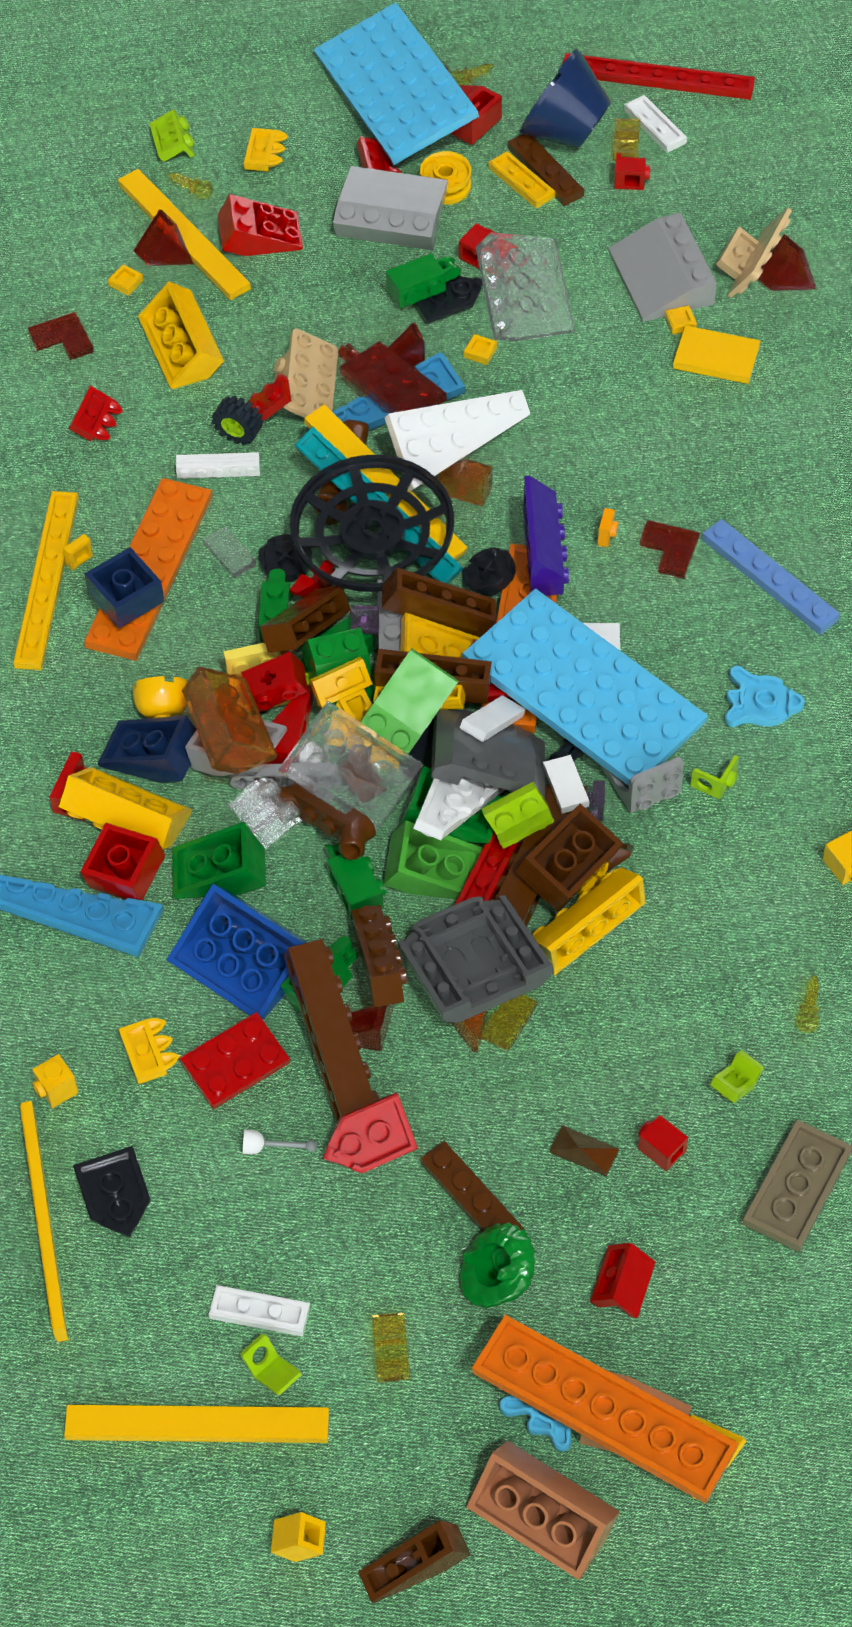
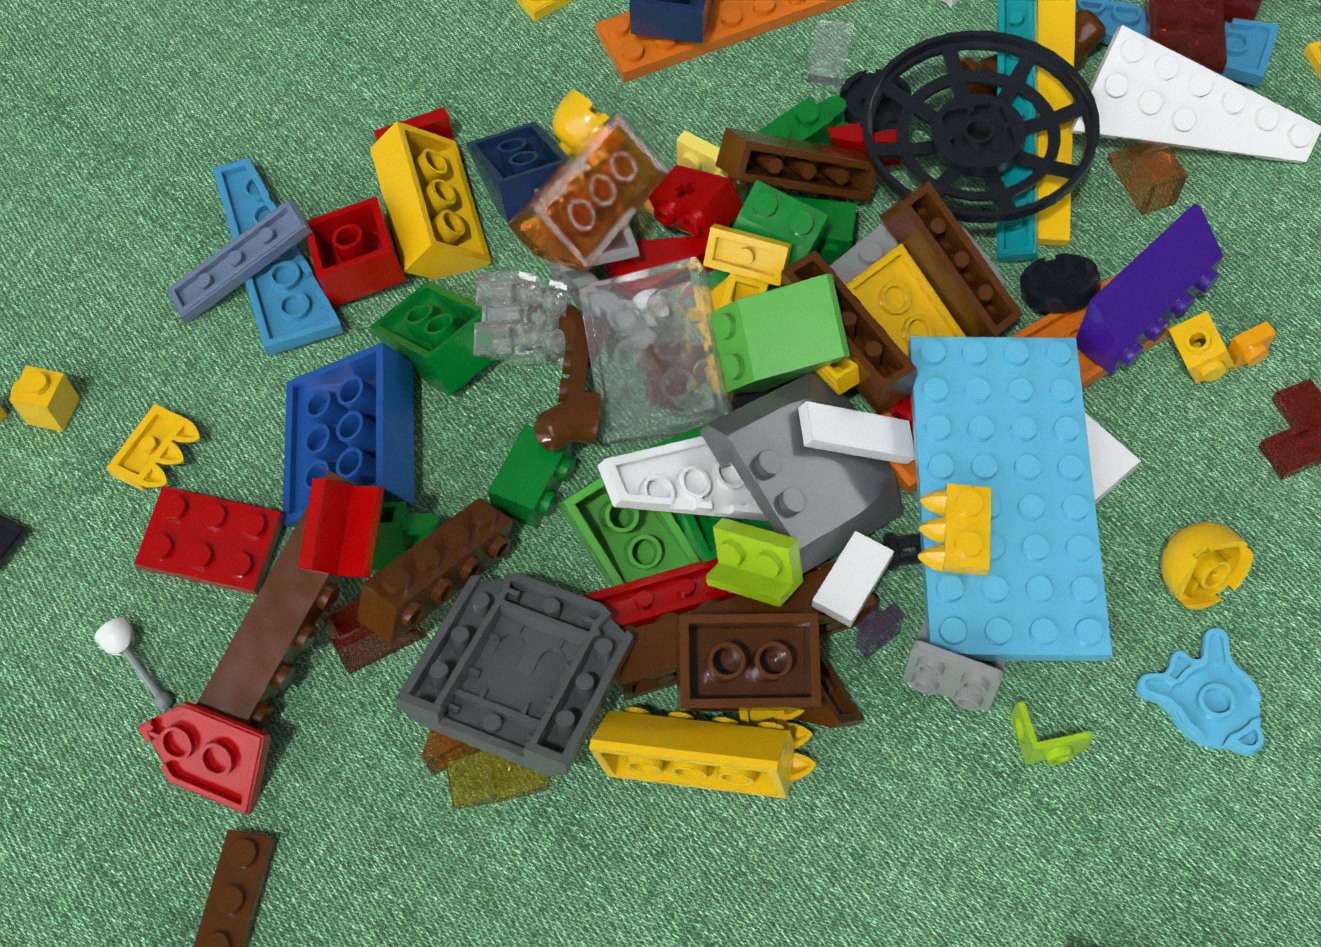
camera: 50 degrees right, 5 degrees up
(66, 923) = (239, 260): none -> sand blue tile
(334, 962) = (340, 529): none -> red panel
(365, 618) = (856, 216): clear purple plate -> none
(589, 546) = (1201, 348): none -> yellow brick
(589, 717) = (961, 530): none -> yellow plate
(696, 642) = (1203, 563): none -> yellow cylinder

